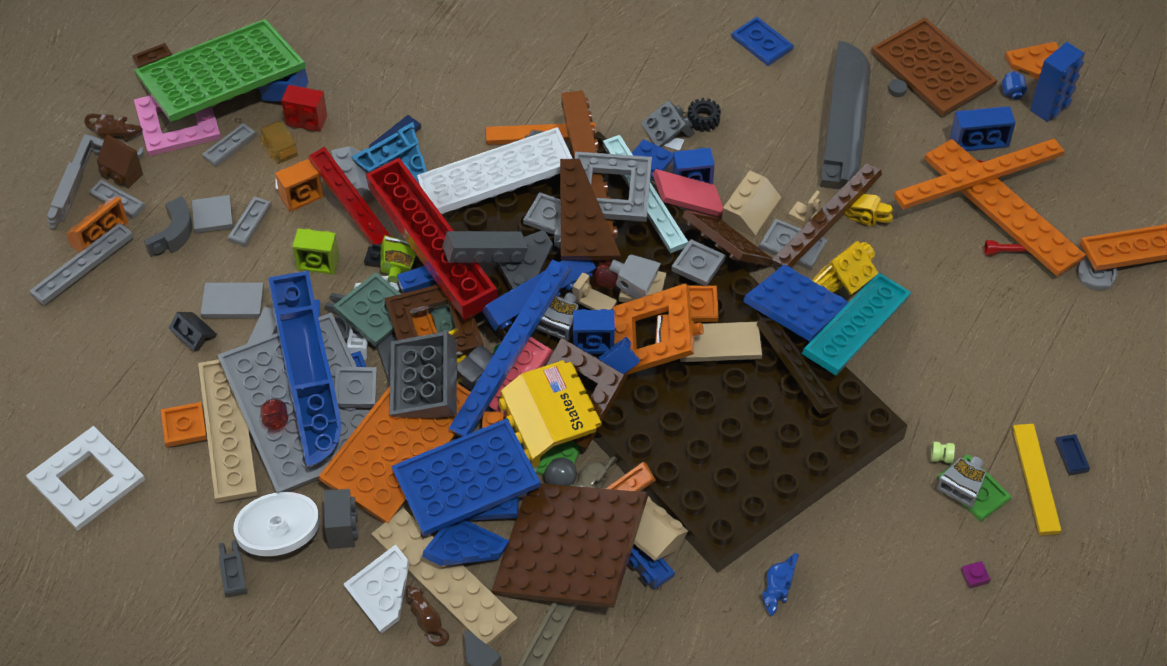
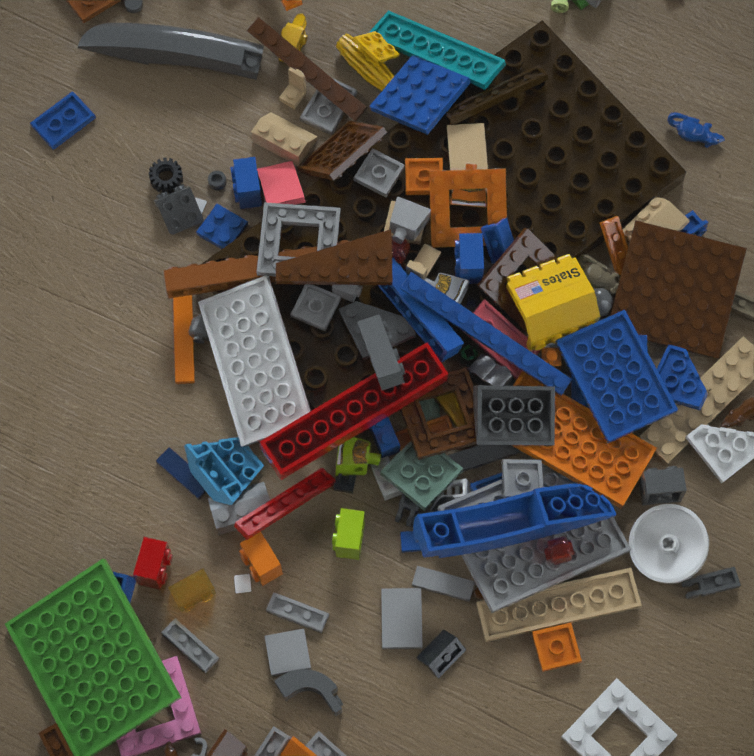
camera: 90 degrees left, 15 degrees up
(657, 211) = (250, 236): light aqua plate -> none

